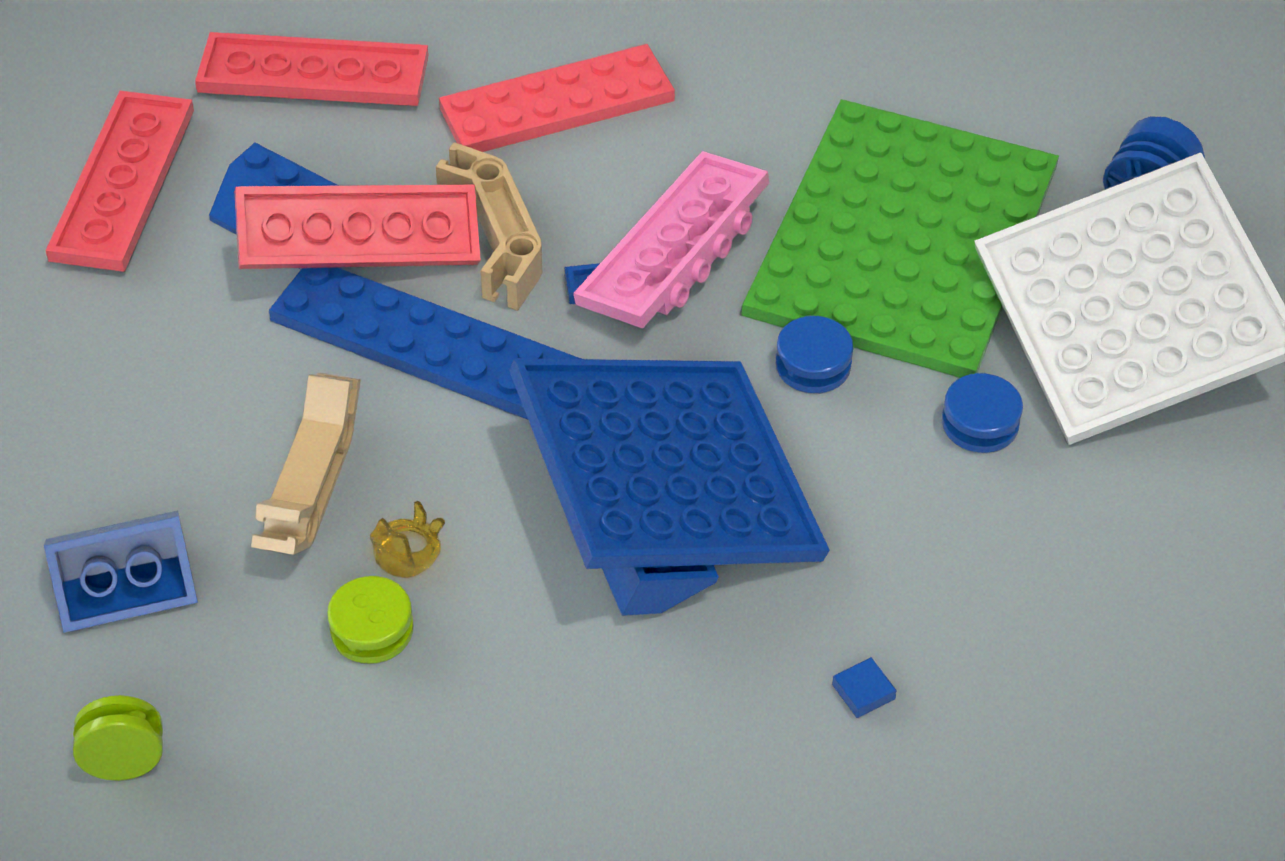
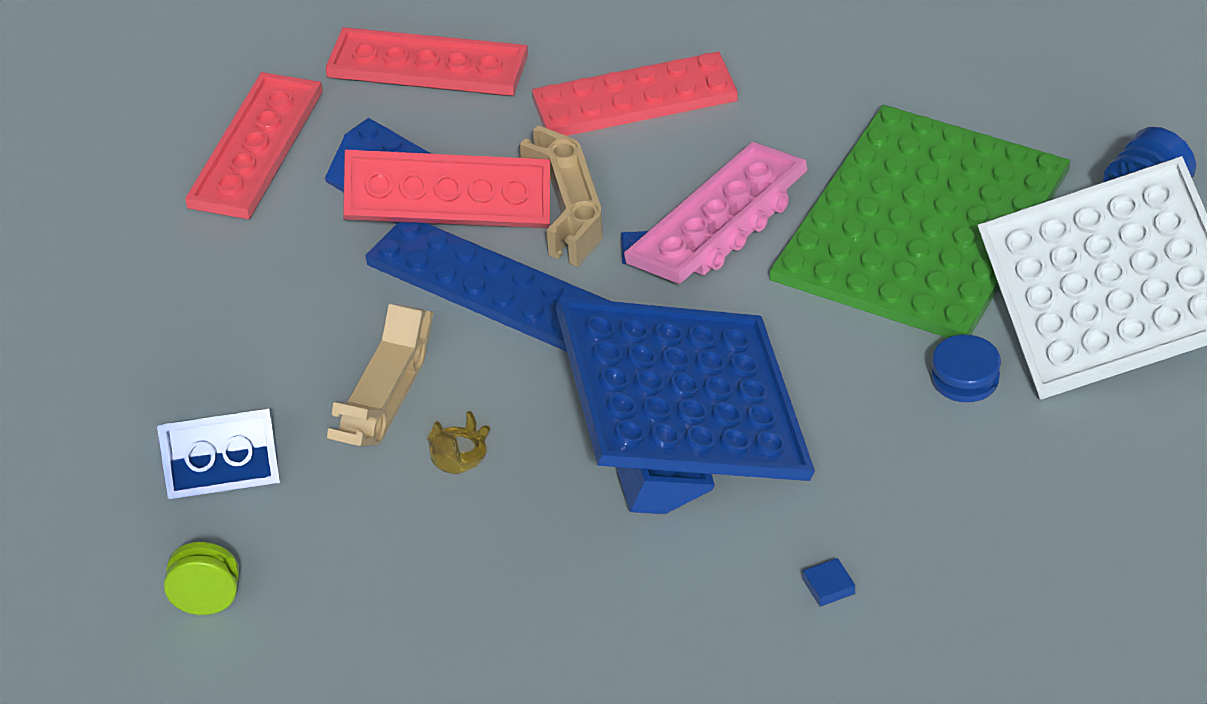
camera: 10 degrees right, 5 degrees down
(370, 619) = (419, 503): lime head -> none
(814, 354) = (826, 313): blue head -> none

